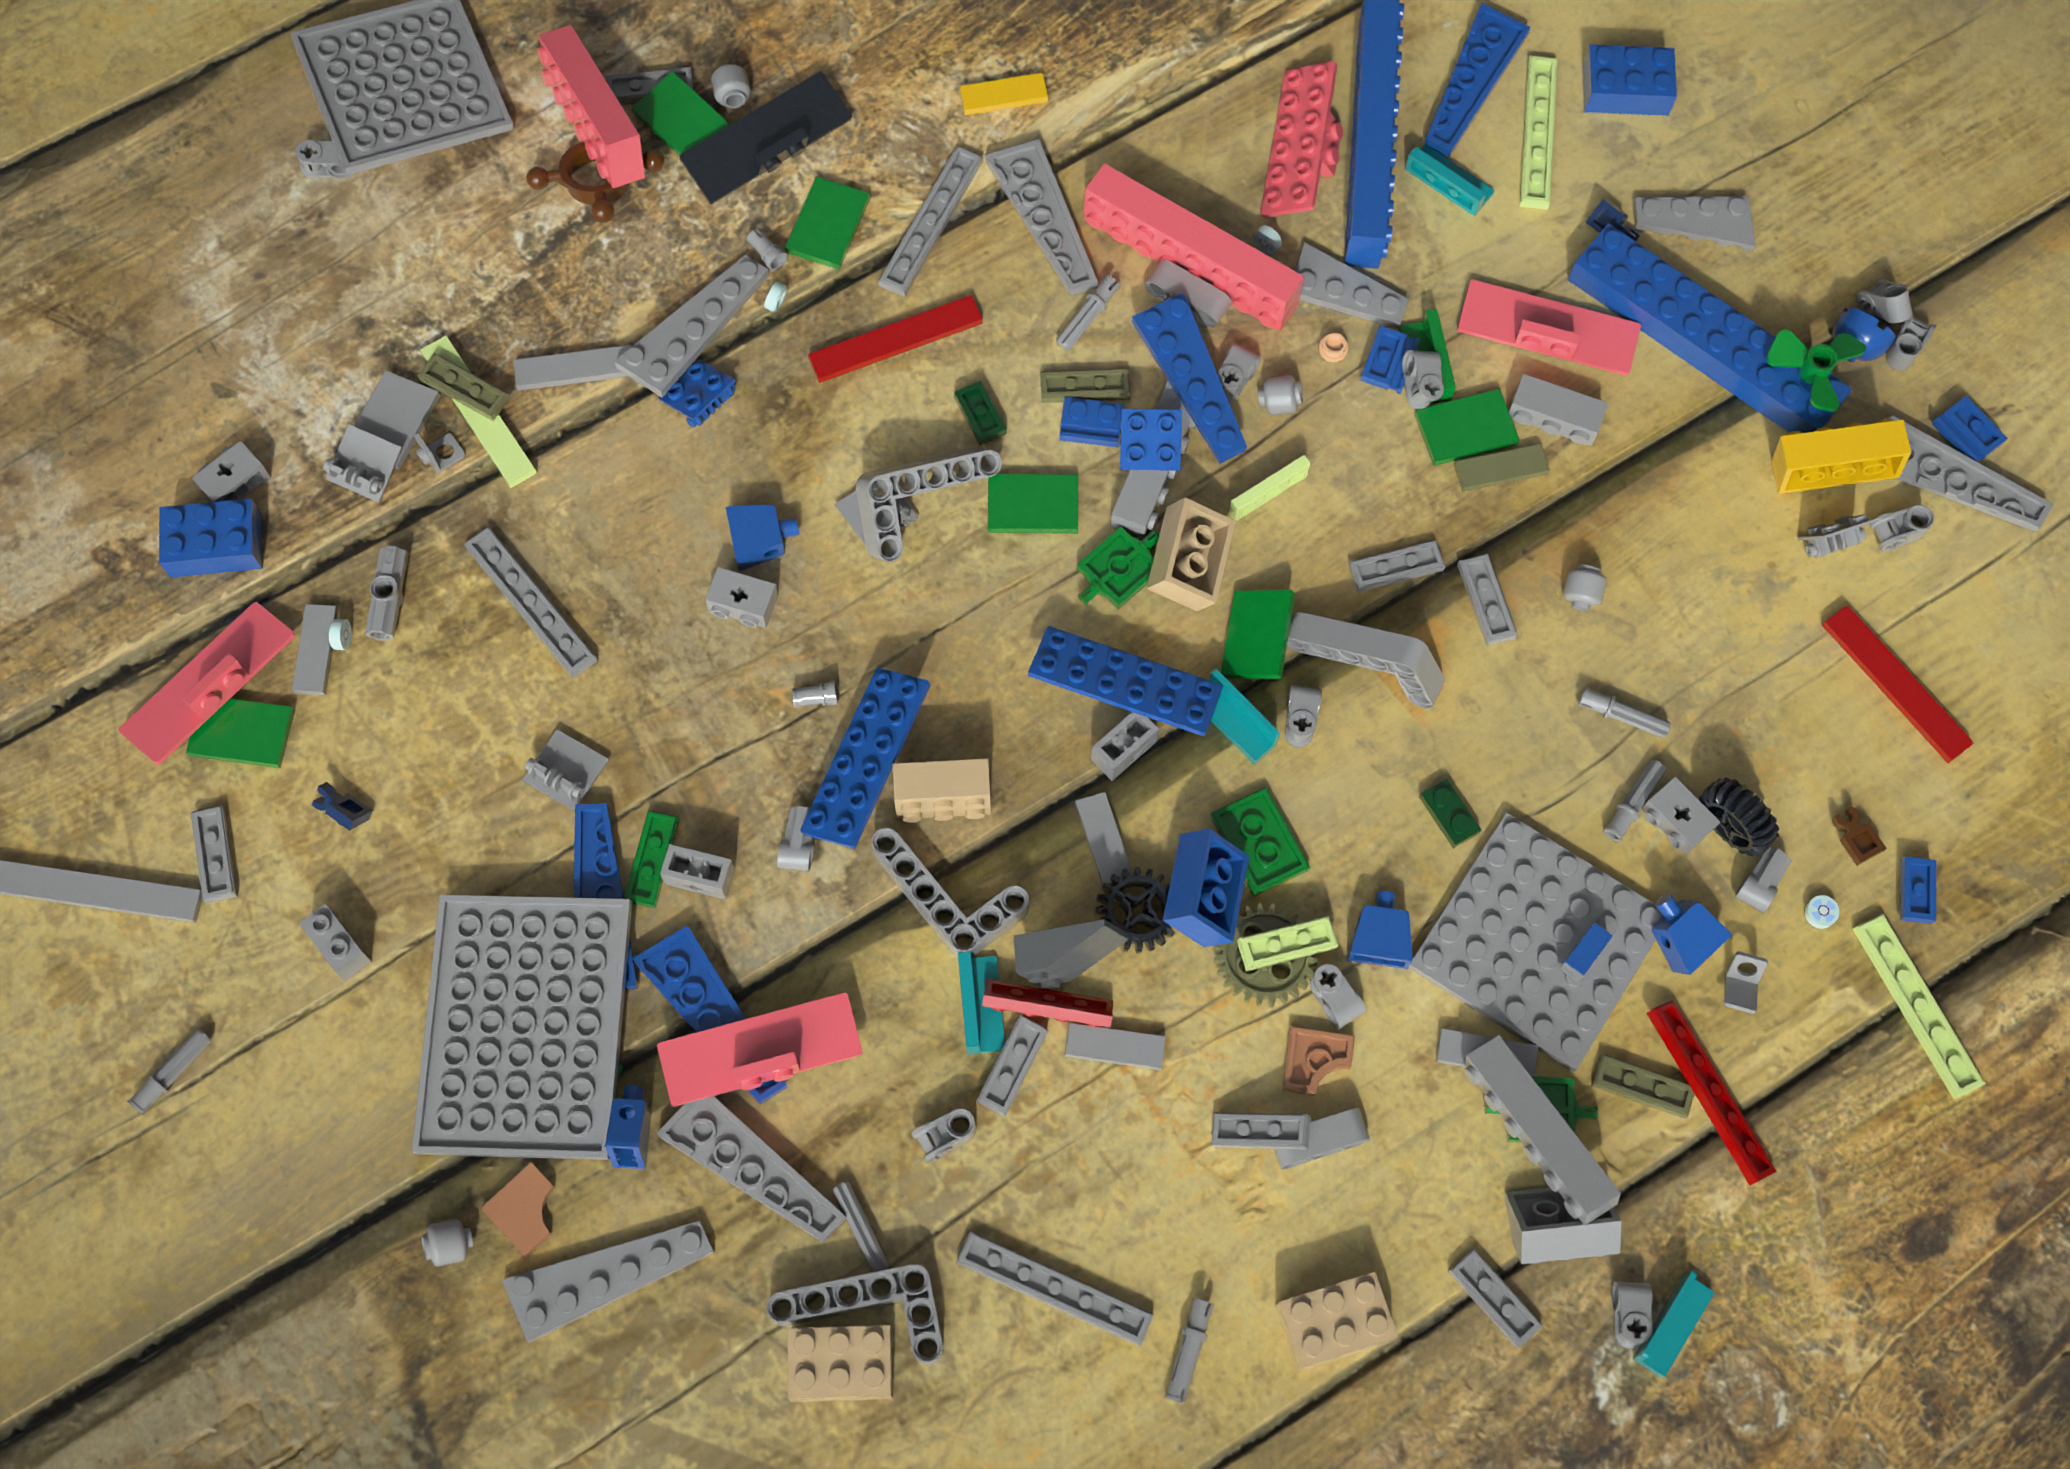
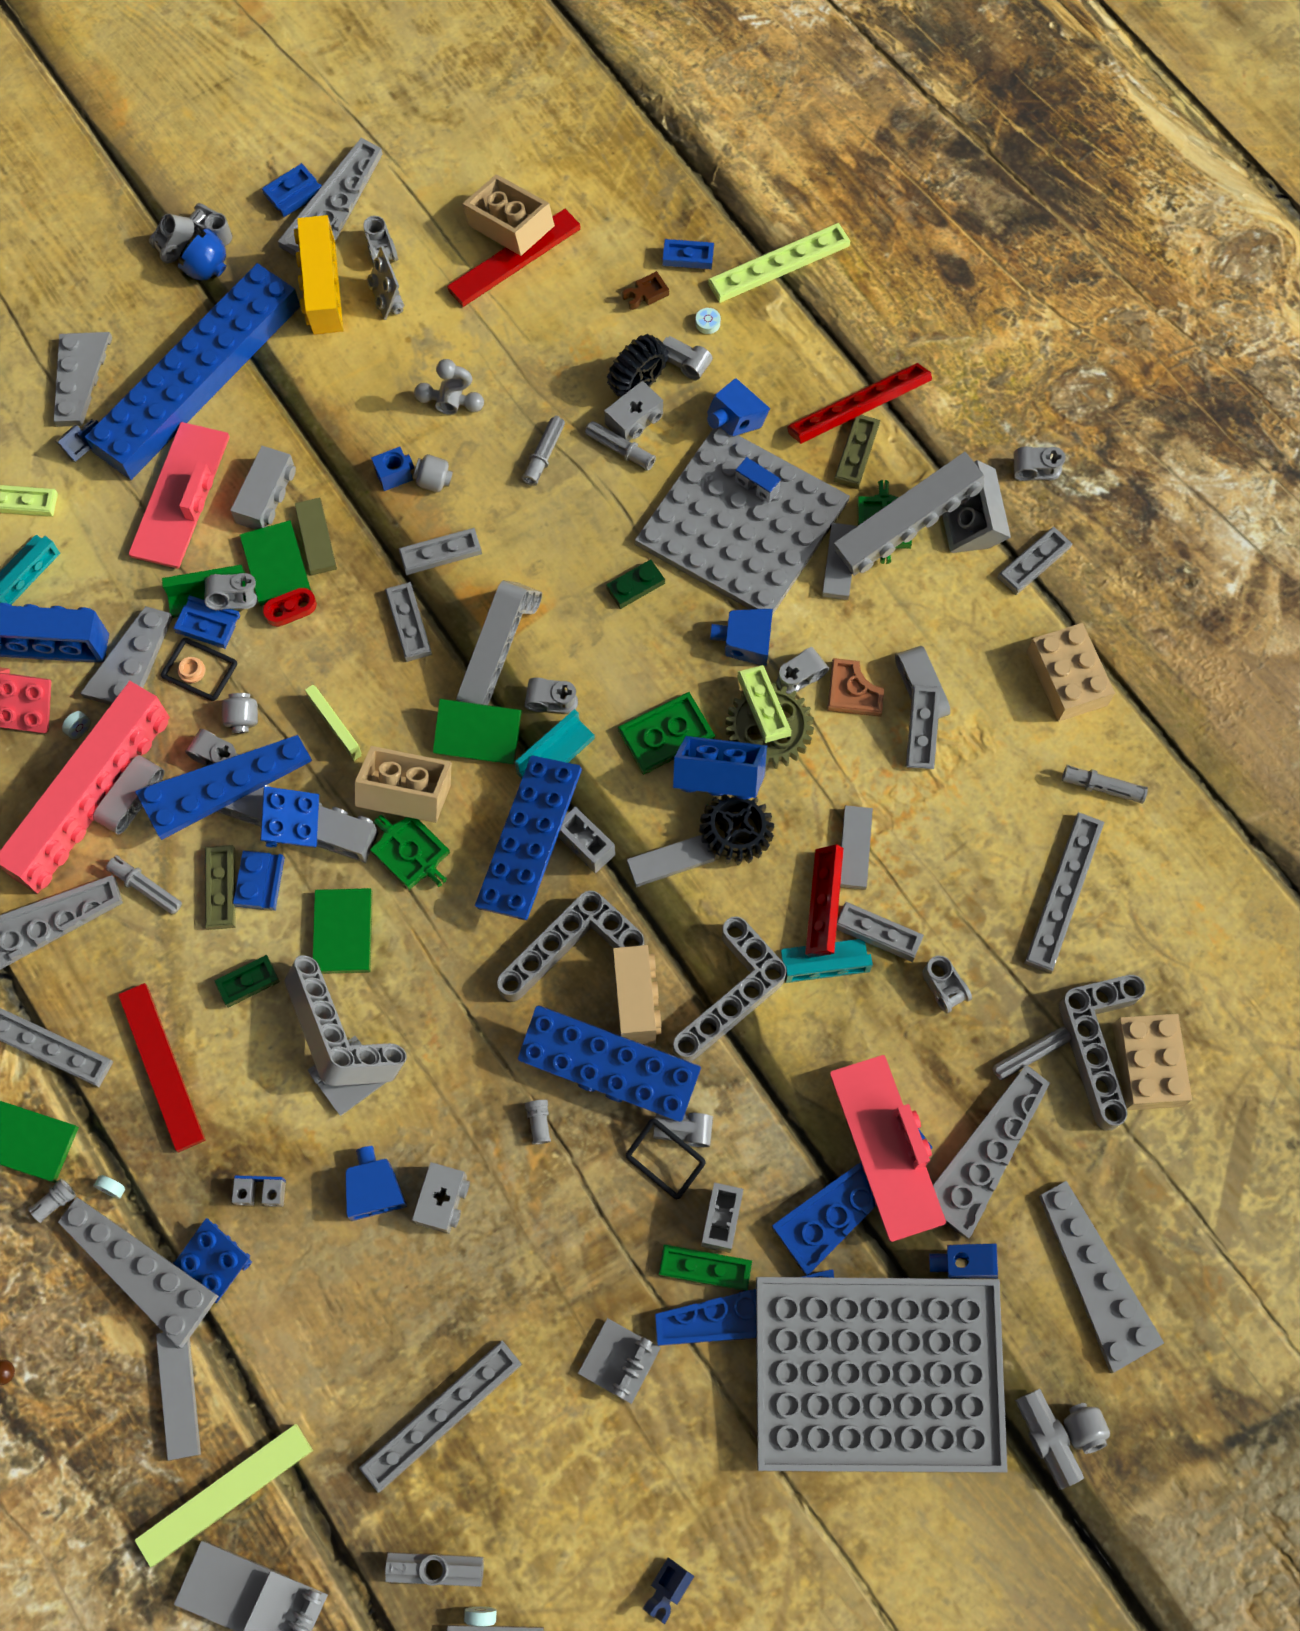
camera: 90 degrees left, 0 degrees up
(334, 942) = (809, 1576): light grey brick -> none
(428, 453) = (277, 1542): light grey bracket -> none
(440, 1202) = (1049, 1439): none -> light grey piece
(463, 387) = (198, 1511): olive tile -> none
(519, 1209) = (1046, 1363): nougat tile -> none
(729, 834) = (681, 1143): none -> black piece
(762, 443) = (248, 1184): none -> flat silver piece
(1011, 724) = (566, 940): none -> light grey beam
(1064, 952) = (787, 891): dark grey slope -> none
(1345, 390) = (202, 647): none -> black piece
(1411, 444) = (289, 606): none -> red plate
(1594, 534) = (393, 458): none -> blue brick
(1674, 1324) = (1037, 434): teal panel -> none
(1692, 604) = (450, 391): none -> light grey piece
(1742, 987) = (772, 378): light grey bracket -> none
(1792, 353) = (238, 281): green piece -> none
(1949, 670) = (508, 214): none -> tan brick

